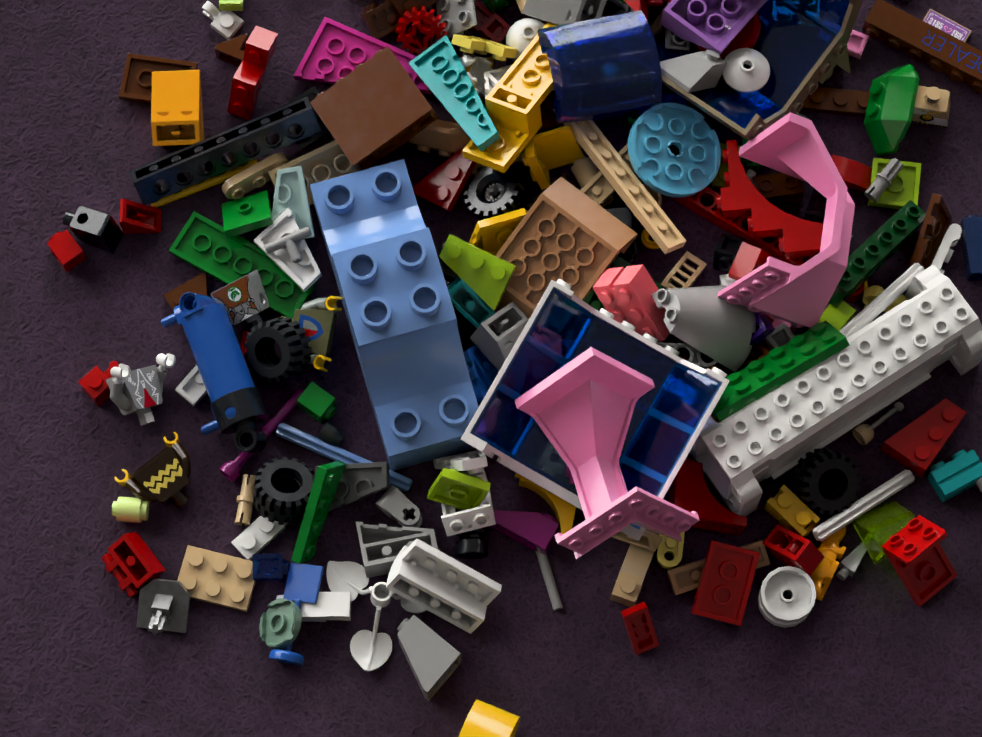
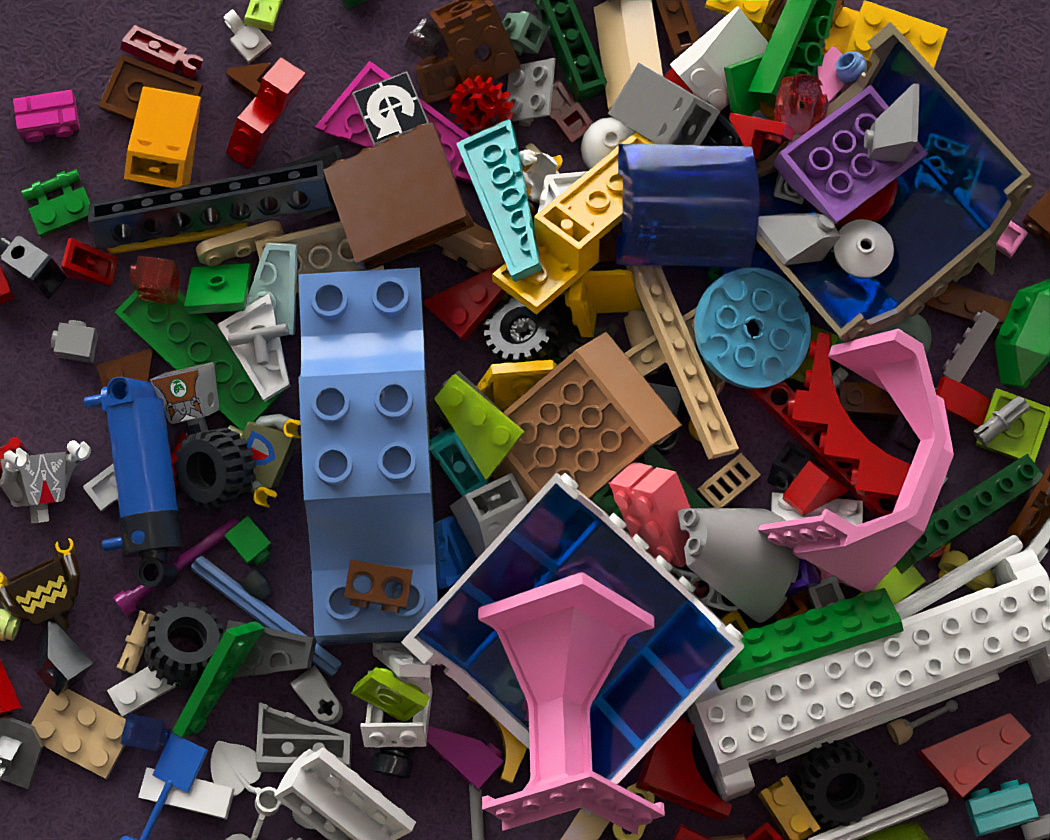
camera: 10 degrees right, 5 degrees up
(79, 112) = (46, 115): none -> dark pink brick
(107, 184) = (61, 211): none -> green plate
(142, 280) = (75, 341): none -> light grey brick
(158, 45) = (160, 51): none -> dark red plate
(188, 525) = (60, 659): none -> black slope
(197, 215) = (156, 279): none -> clear red brick
(280, 623) = (141, 805): sand green tile -> none
(348, 47) = (390, 108): none -> tile
(431, 395) = (380, 576): none -> reddish brown brick
(483, 46) = (553, 141): light yellow plate -> none
(847, 127) = (971, 346): none -> light grey piece

